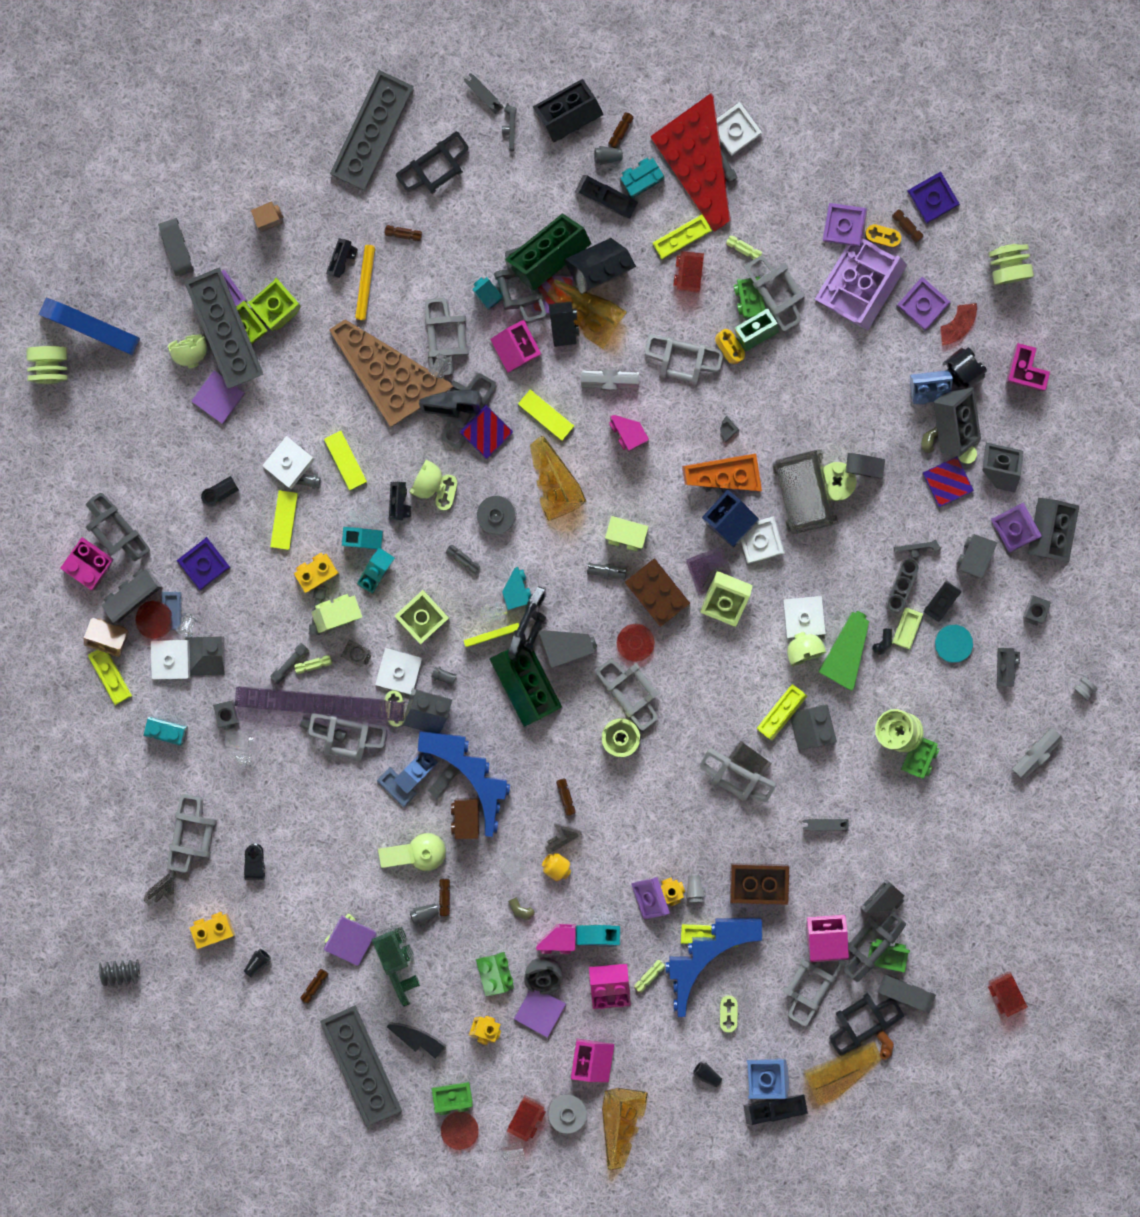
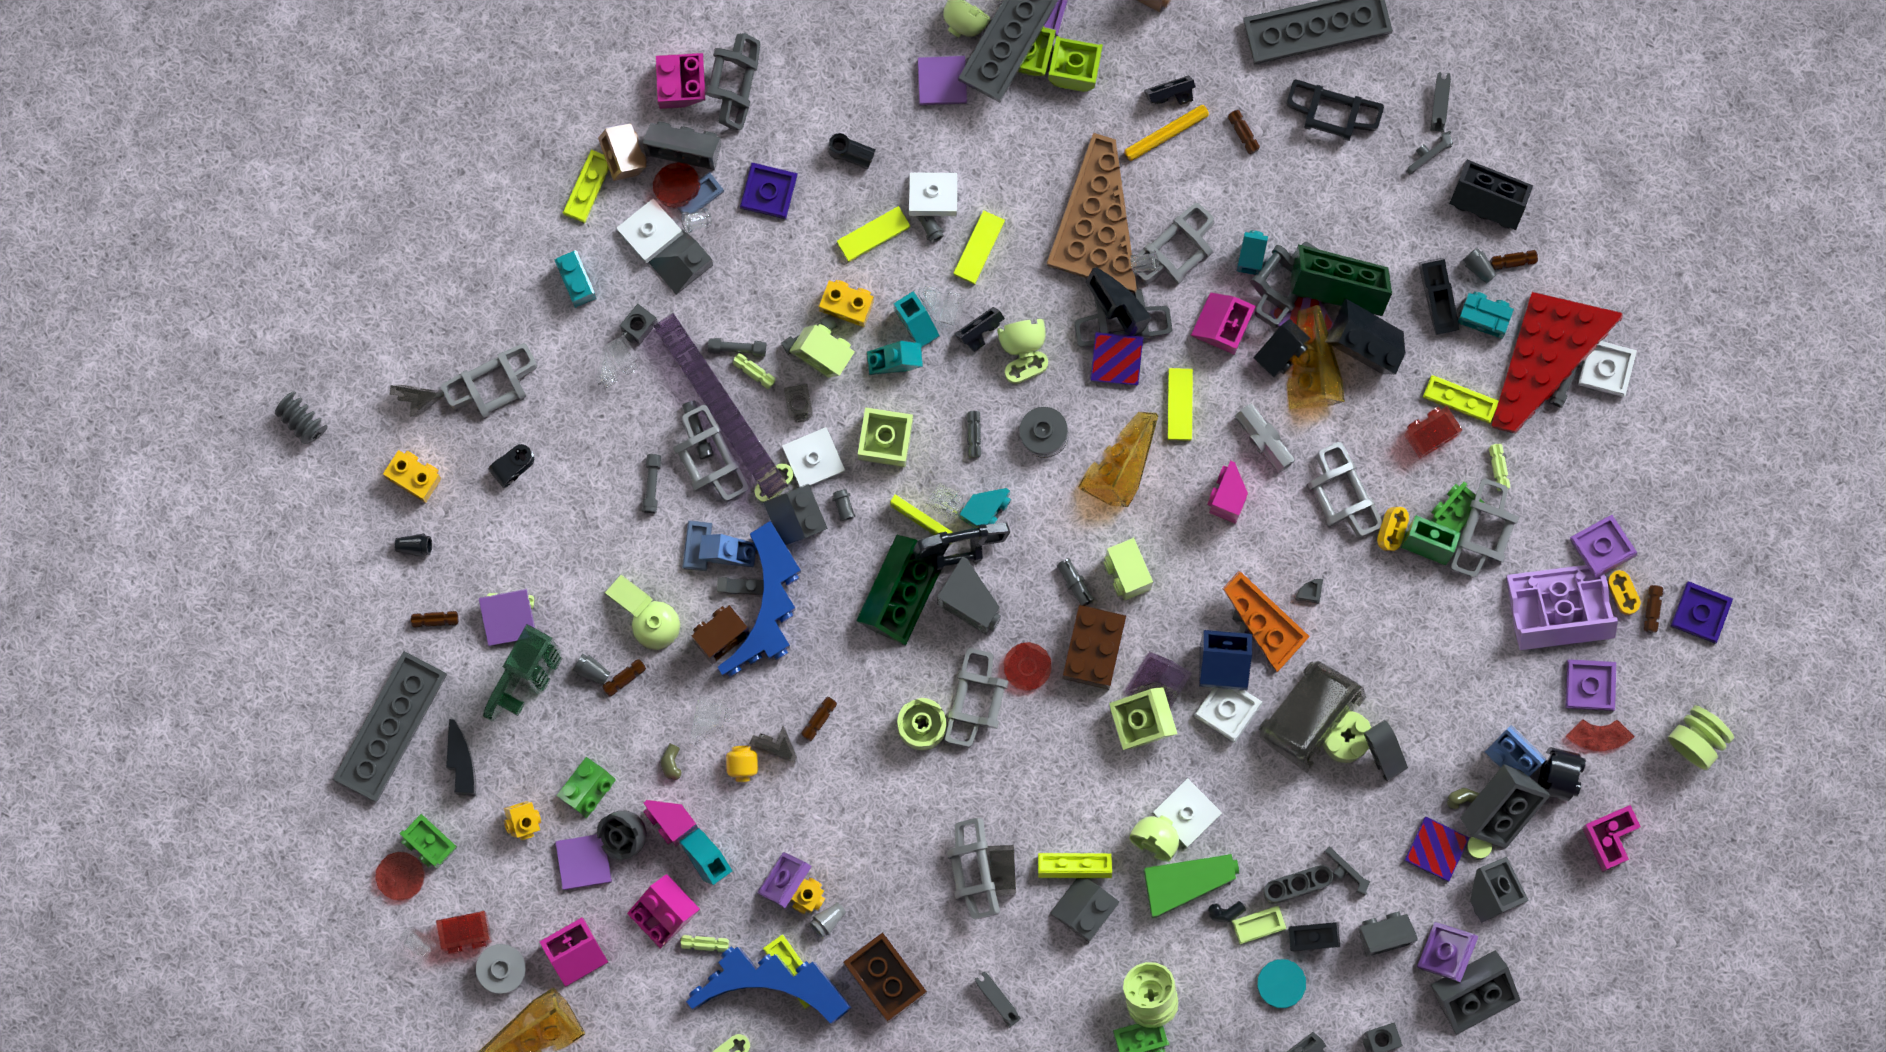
camera: 60 degrees right, 10 degrees down
(322, 773) = (653, 463): none -> dark grey bar

